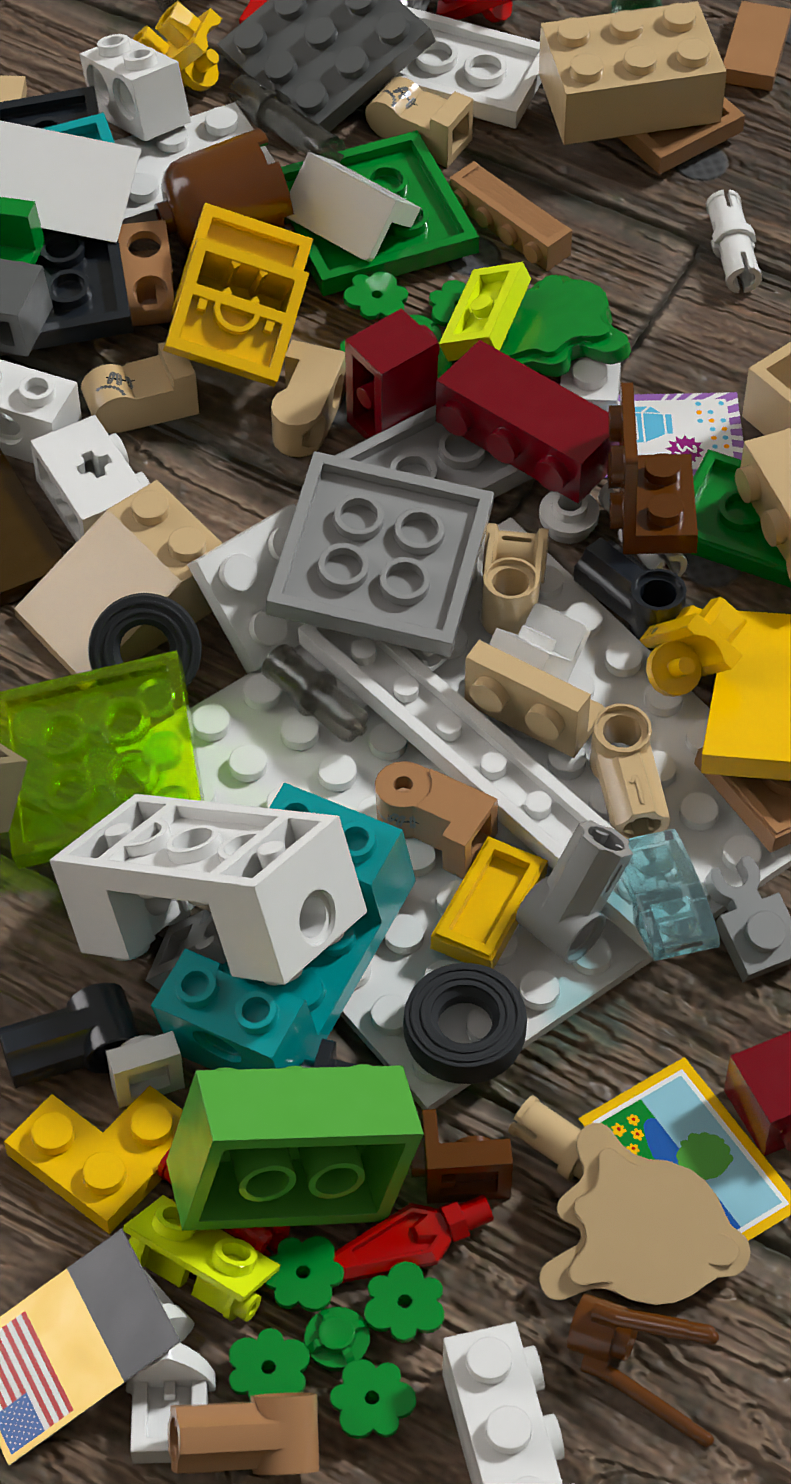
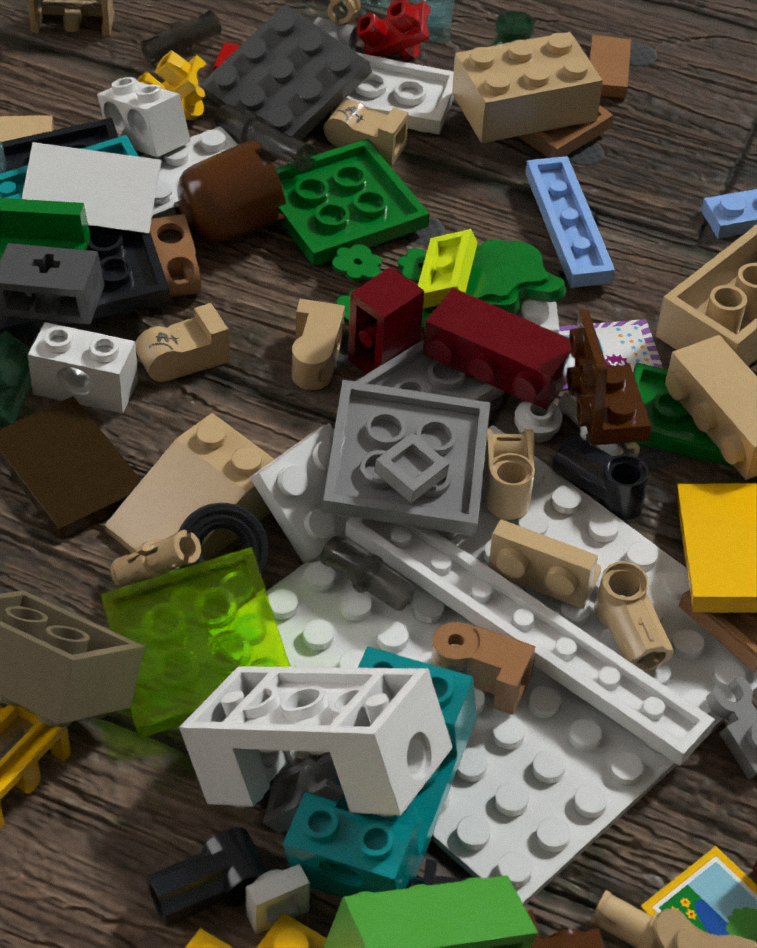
camera: 10 degrees left, 5 degrees down
(62, 655) = (156, 558): none -> tan pin
(84, 472) = (148, 414): white brick -> none
(239, 295) = (254, 267): yellow bracket -> none
(346, 206) = (325, 197): white panel -> none
(377, 568) = (411, 467): none -> light grey plate
(465, 1061) = (532, 866): black tyre -> none
(486, 904) = (538, 734): yellow tile -> none
(511, 216) = (451, 198): medium nougat piece -> none
(545, 641) = (547, 515): white bracket -> none
(568, 903) = (607, 727): light grey piece -> none
(659, 257) = (569, 222): none -> light blue plate
(668, 897) = (689, 713): clear light blue slope -> none
(692, 646) = (663, 512): yellow hips -> none
(733, 241) = (622, 207): white pin -> none

